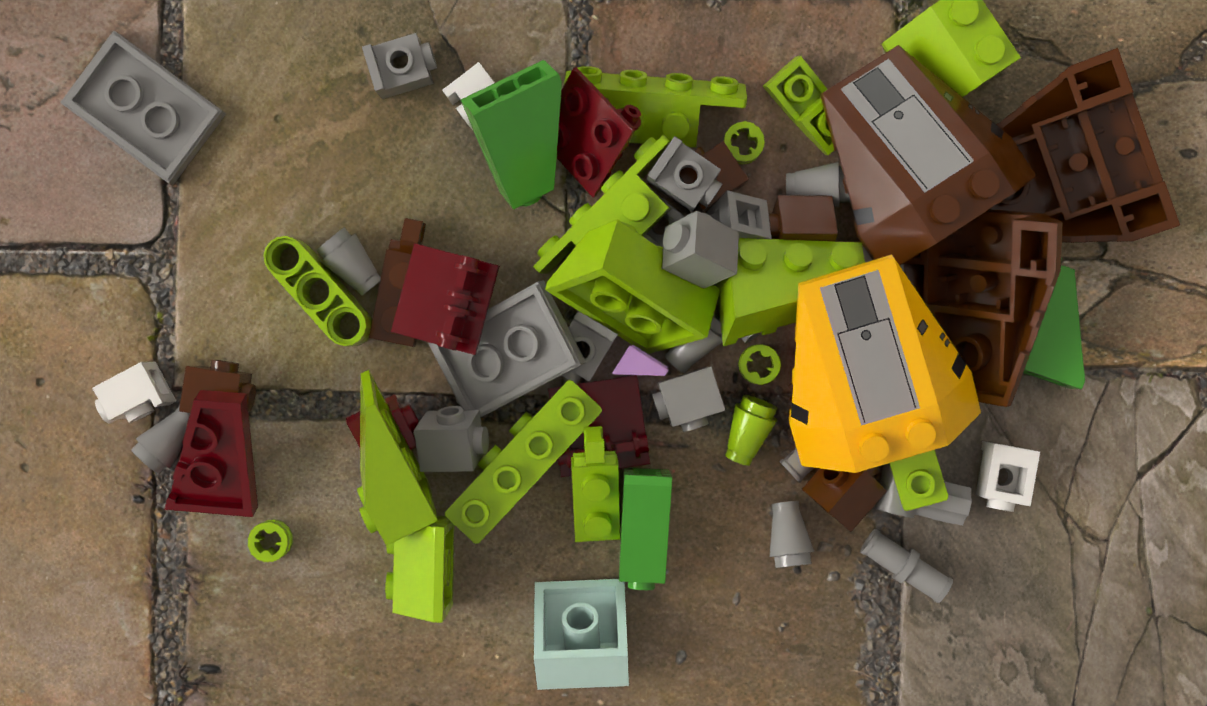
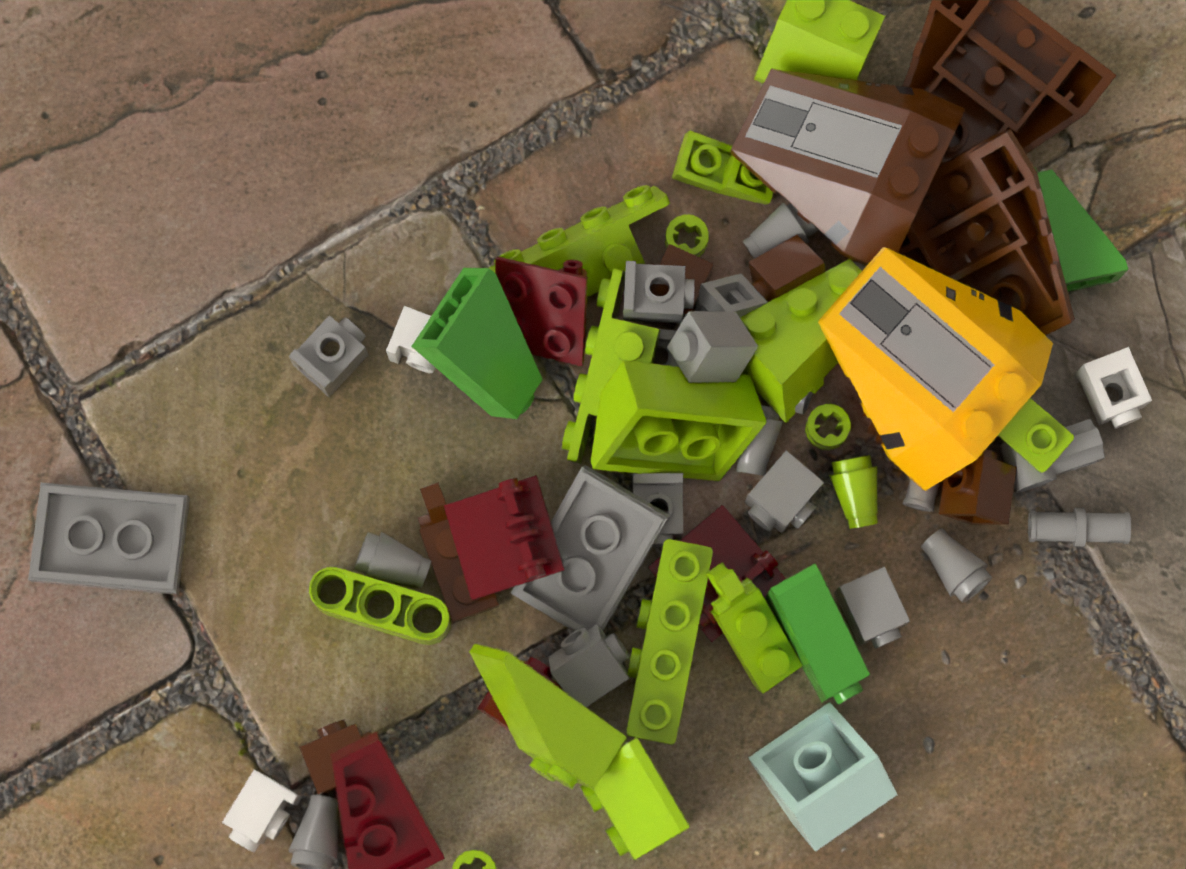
camera: 35 degrees left, 10 degrees down
(639, 363) = (718, 490): lavender slope -> none
(701, 532) = (873, 608): none -> light grey brick

